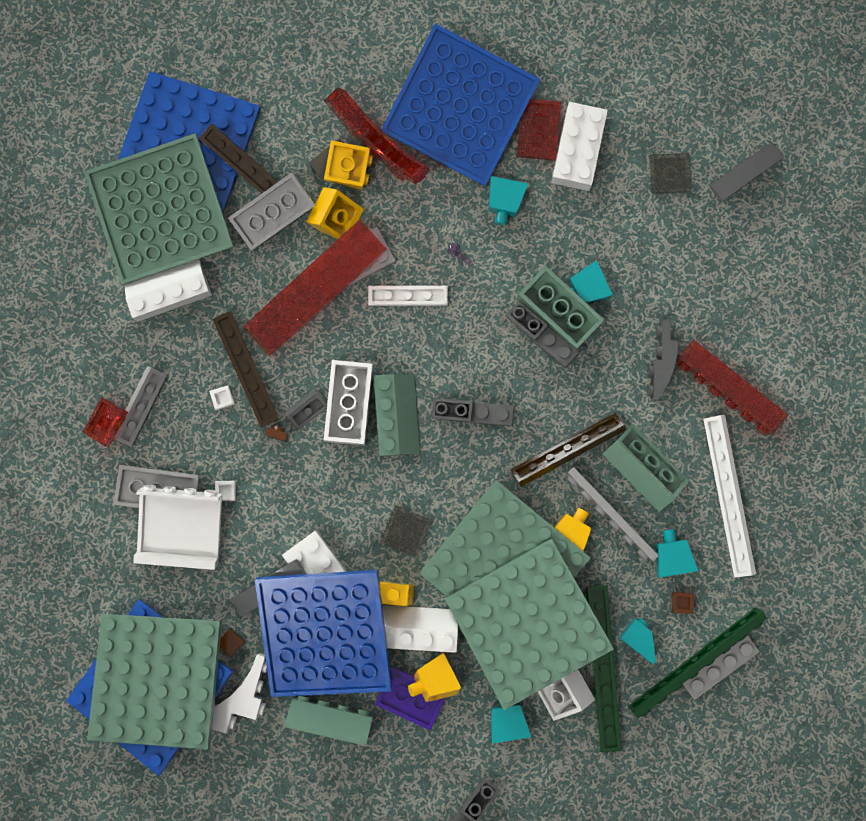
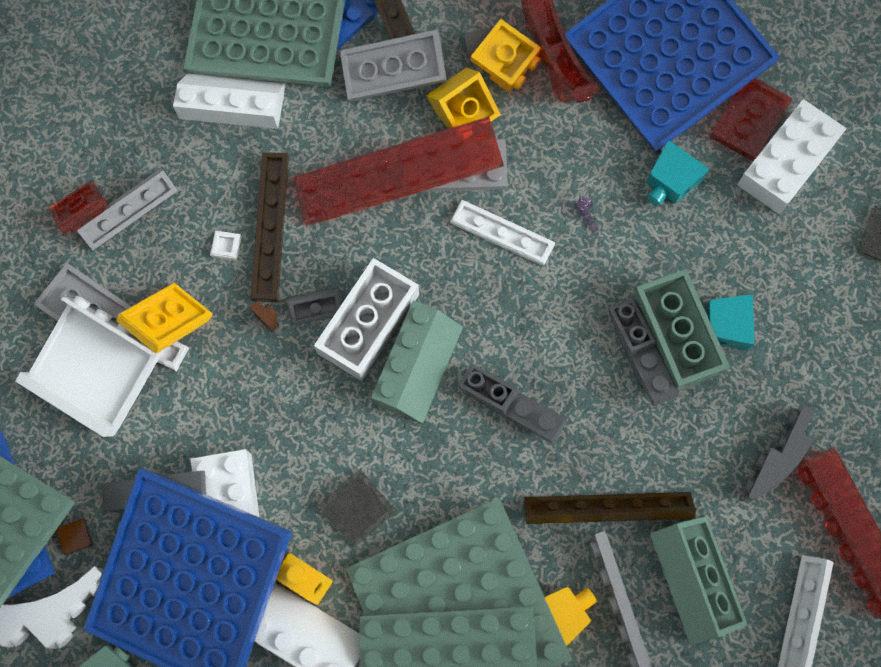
camera: 30 degrees right, 10 degrees down
(211, 470) = (164, 317): none -> yellow tile

